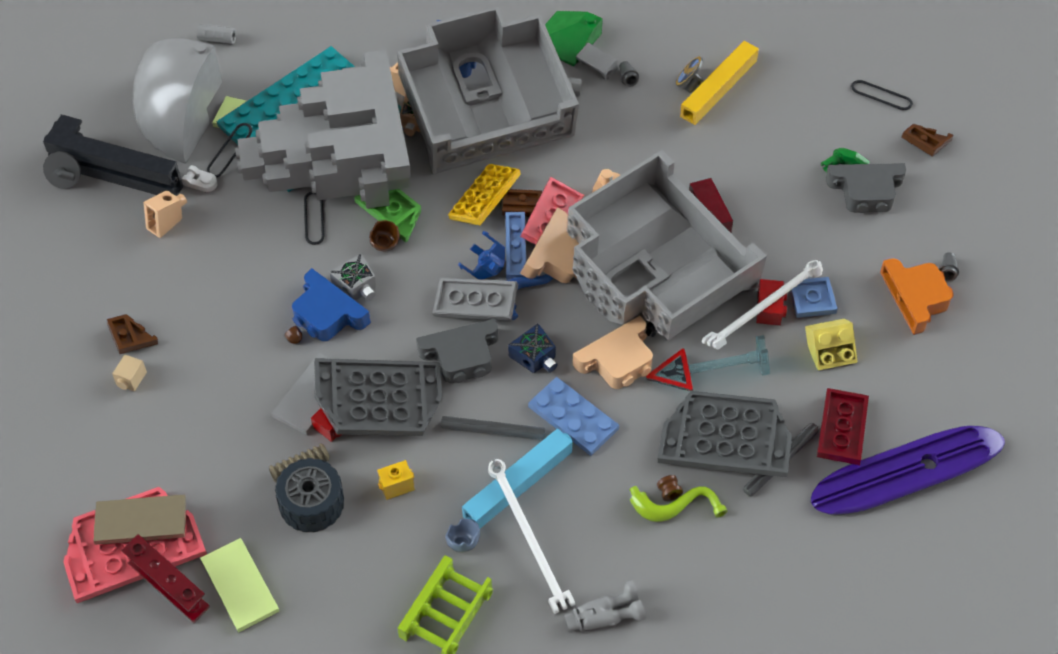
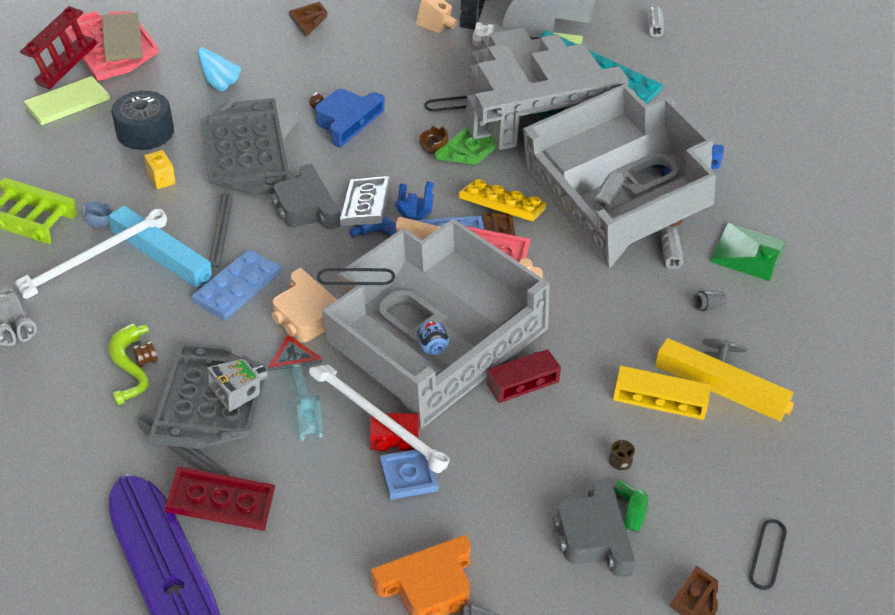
camera: 80 degrees right, 10 degrees down
(129, 373) = (268, 20): tan brick -> none
(229, 421) = (217, 70): none -> medium azure hat
(316, 453) = (183, 117): dark tan piece -> none
(355, 278) = (383, 128): torso -> none
(511, 104) = (608, 191): none -> light grey axle
(534, 350) = (311, 247): torso -> none
(598, 60) = (716, 272): light grey hinge -> none
(642, 292) = (356, 269): none -> black piece
(688, 253) = (432, 337): none -> medium blue head
(726, 405) = (235, 382): none -> light grey torso
(732, 122) = (662, 392): none -> yellow brick
(795, 158) = (625, 450): none -> dark brown wheel
(831, 343) = (340, 489): light yellow slope -> none

